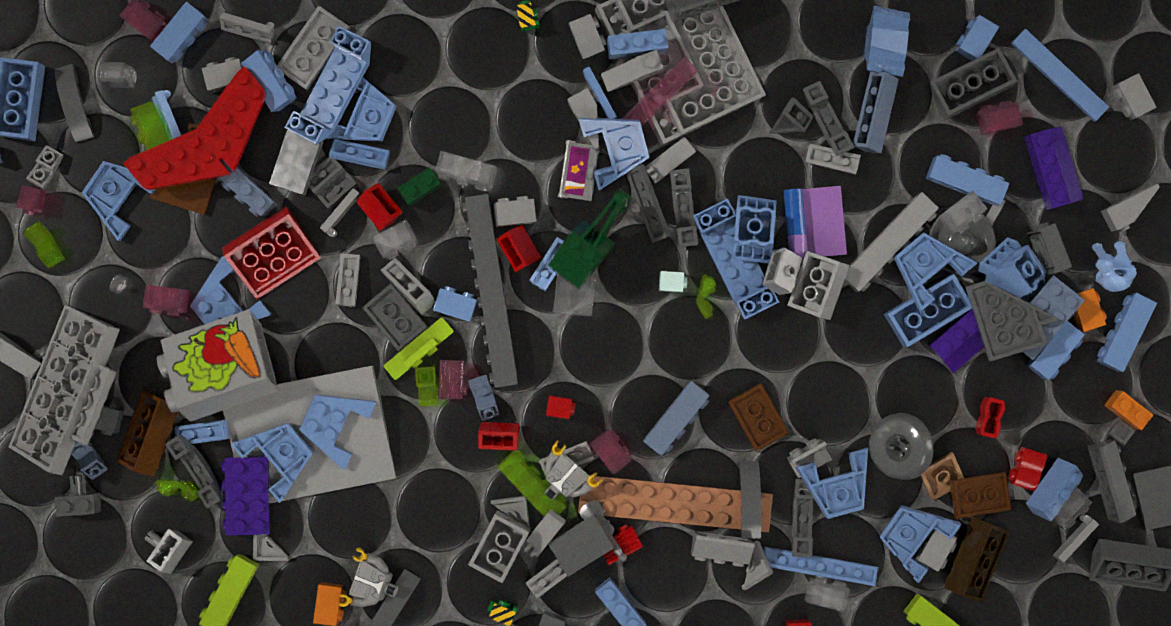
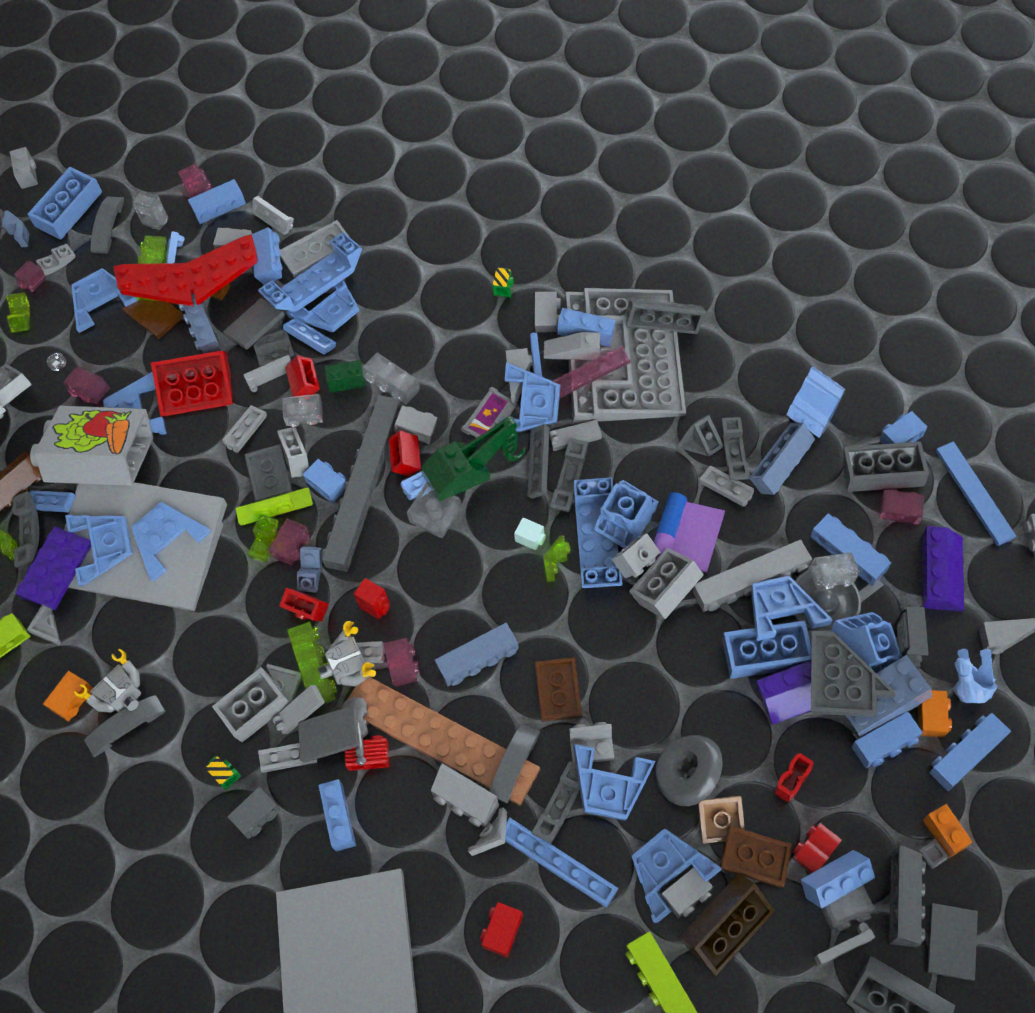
camera: 30 degrees right, 25 degrees down
(827, 594) = (552, 891): clear brick -> none

